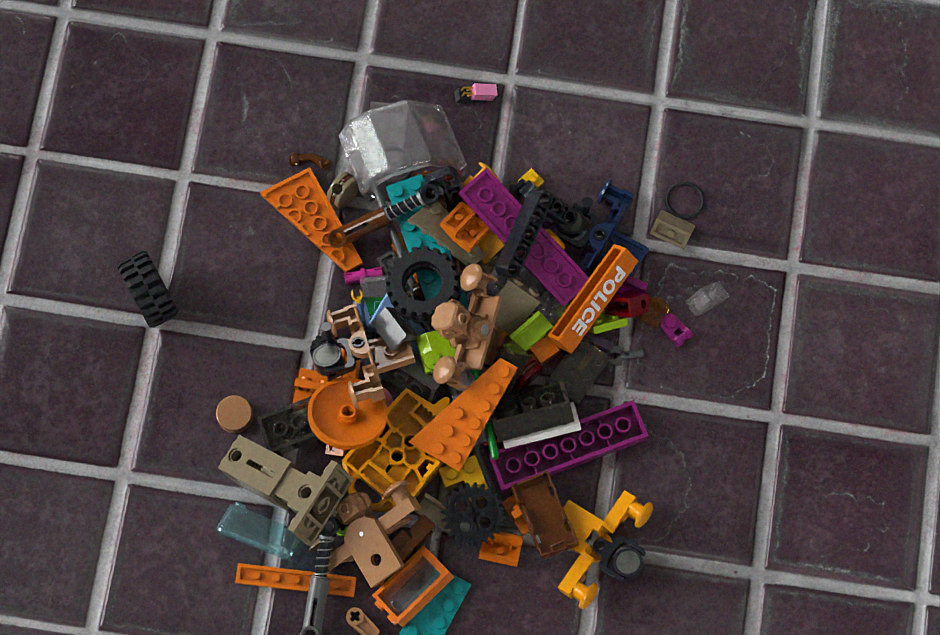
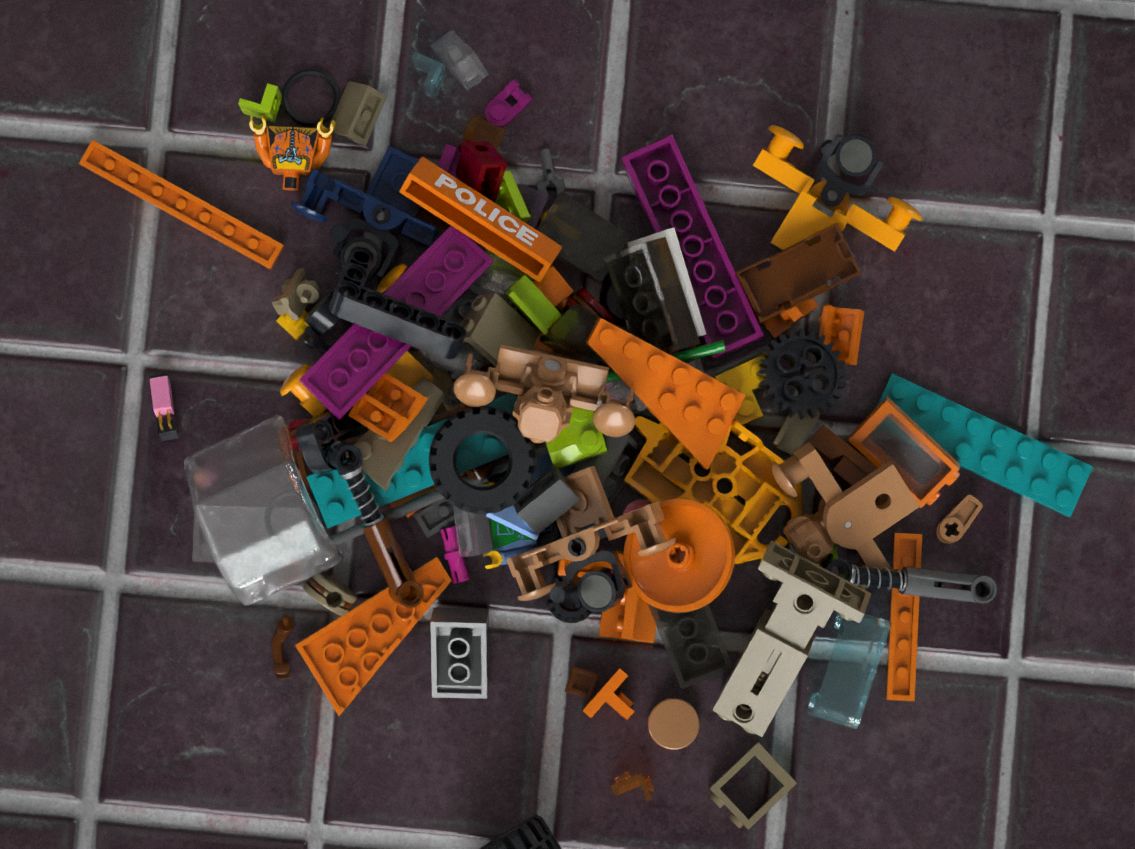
camera: 90 degrees left, 10 degrees up
(196, 379) = (626, 782): none -> clear orange bracket
(196, 481) = (772, 766): none -> dark tan window
(250, 375) = (618, 703): none -> orange bracket
(268, 355) = (582, 682): none -> reddish brown tile
(296, 273) = (459, 652): none -> dark grey slope
(547, 179) = (296, 295): none -> dark tan hips
(613, 112) = (181, 204): none -> orange plate
(648, 183) = (292, 149): none -> torso
(680, 168) = (268, 107): none -> lime panel
(693, 278) = (435, 71): none -> clear light blue panel

